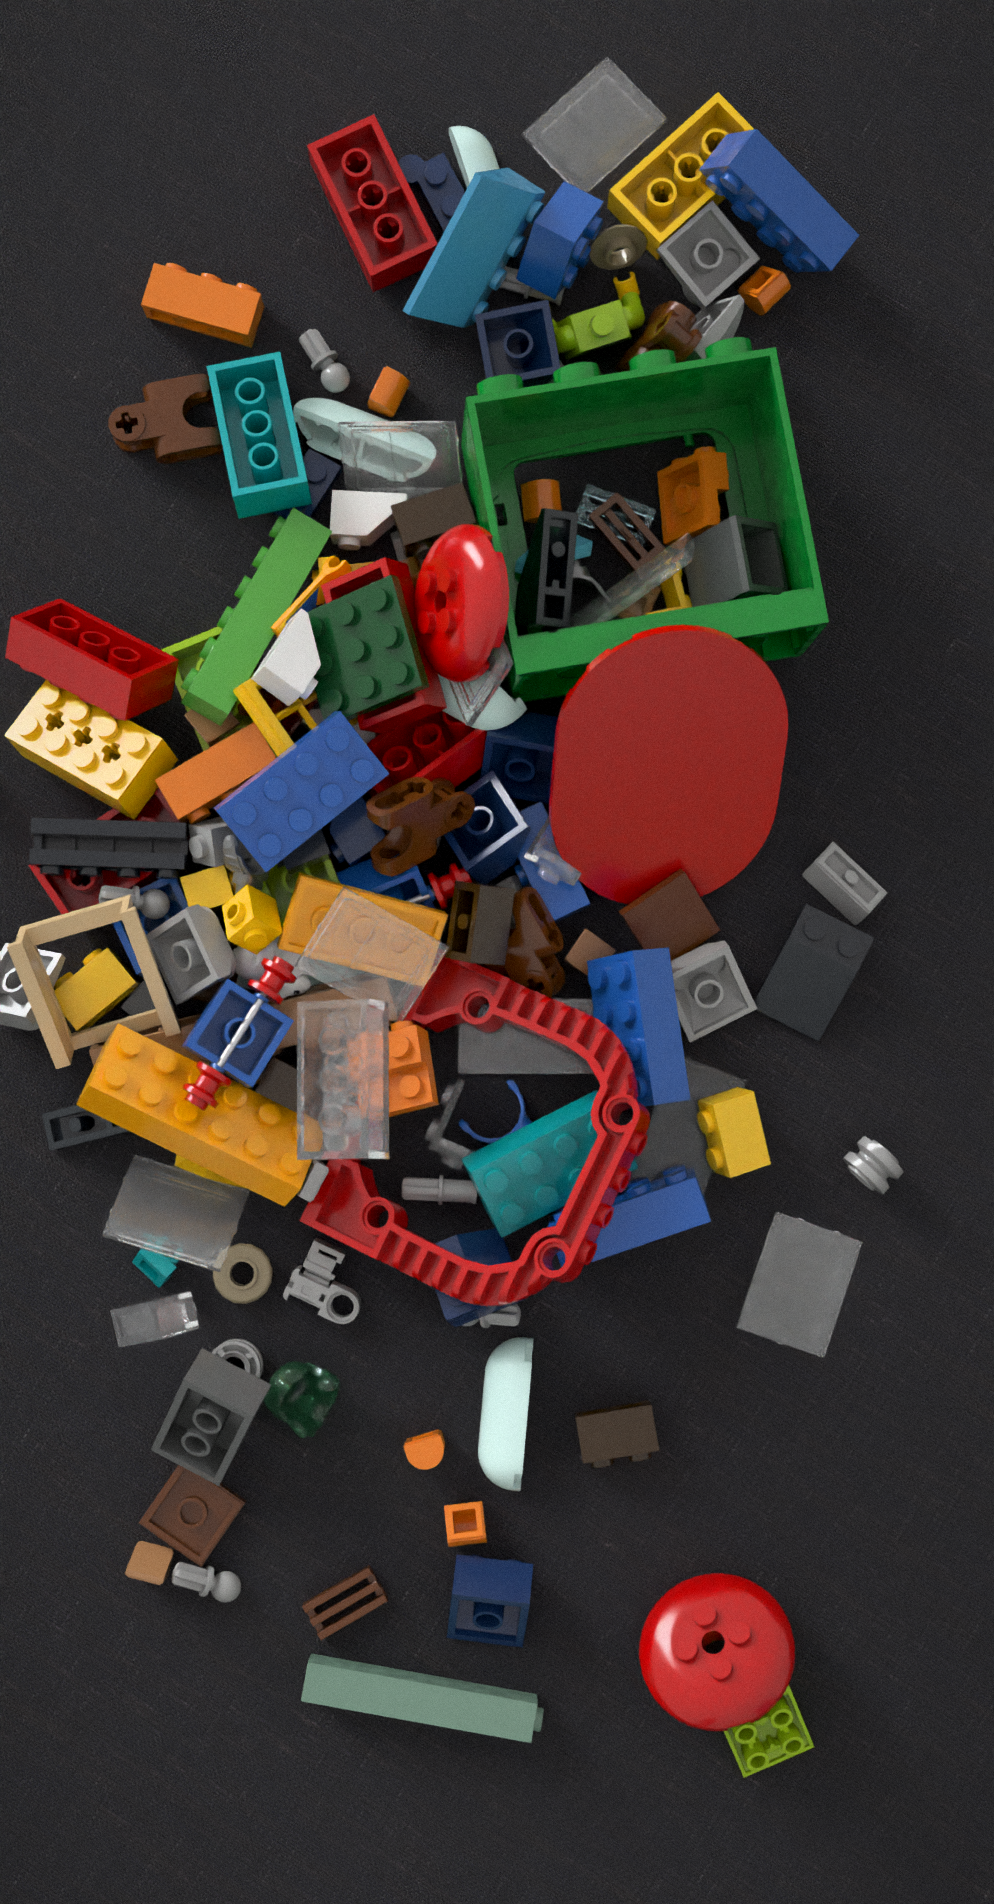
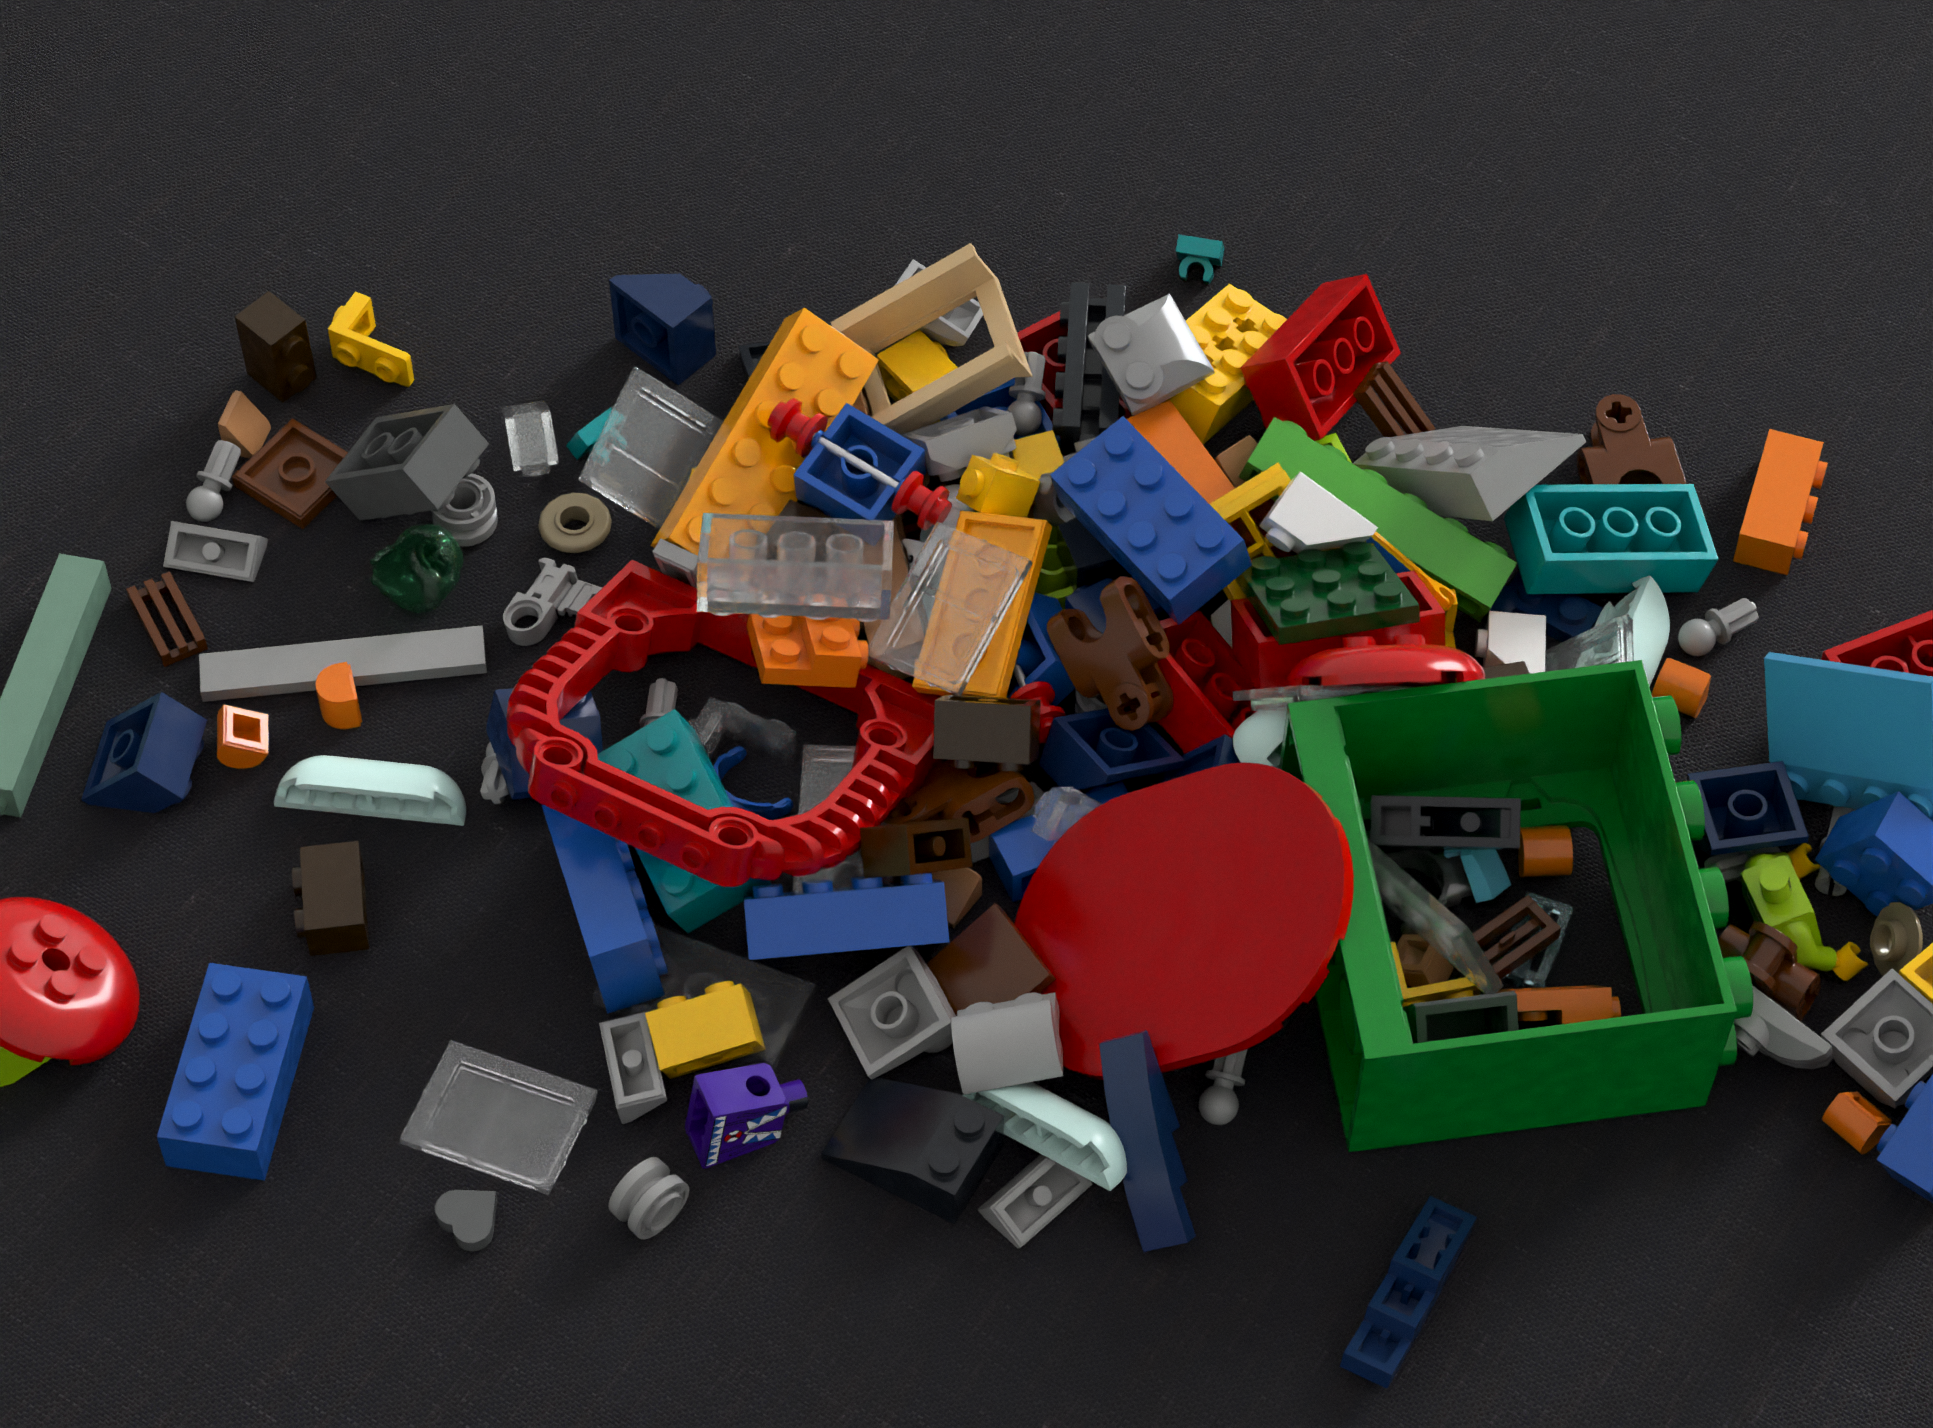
camera: 90 degrees right, 30 degrees down
(42, 1484) = (354, 348): none -> yellow bracket
(43, 1210) = (664, 321): none -> dark blue slope
(77, 1544) = (276, 346): none -> dark brown brick
(120, 793) = (1150, 354): none -> light grey slope
(147, 602) = (1397, 401): none -> reddish brown tile
(196, 542) = (1469, 468): none -> light grey slope
(274, 1571) = (214, 551): none -> light grey slope
(386, 1452) = (371, 660): none -> light grey tile
(591, 975) = (916, 847): none -> dark brown brick
(743, 901) = (1007, 1042): none -> light grey brick
(758, 1186) = (632, 1066): none -> light grey slope
(776, 1489) = (236, 1071): none -> blue brick
(803, 869) = (1059, 1131): none -> light aqua brick
(803, 1114) = (739, 1111): none -> dark purple torso
(826, 799) = (1144, 1122): none -> dark blue slope
(882, 1299) = (468, 1216): none -> dark grey tile
(915, 614) = (1408, 1292): none -> dark blue slope

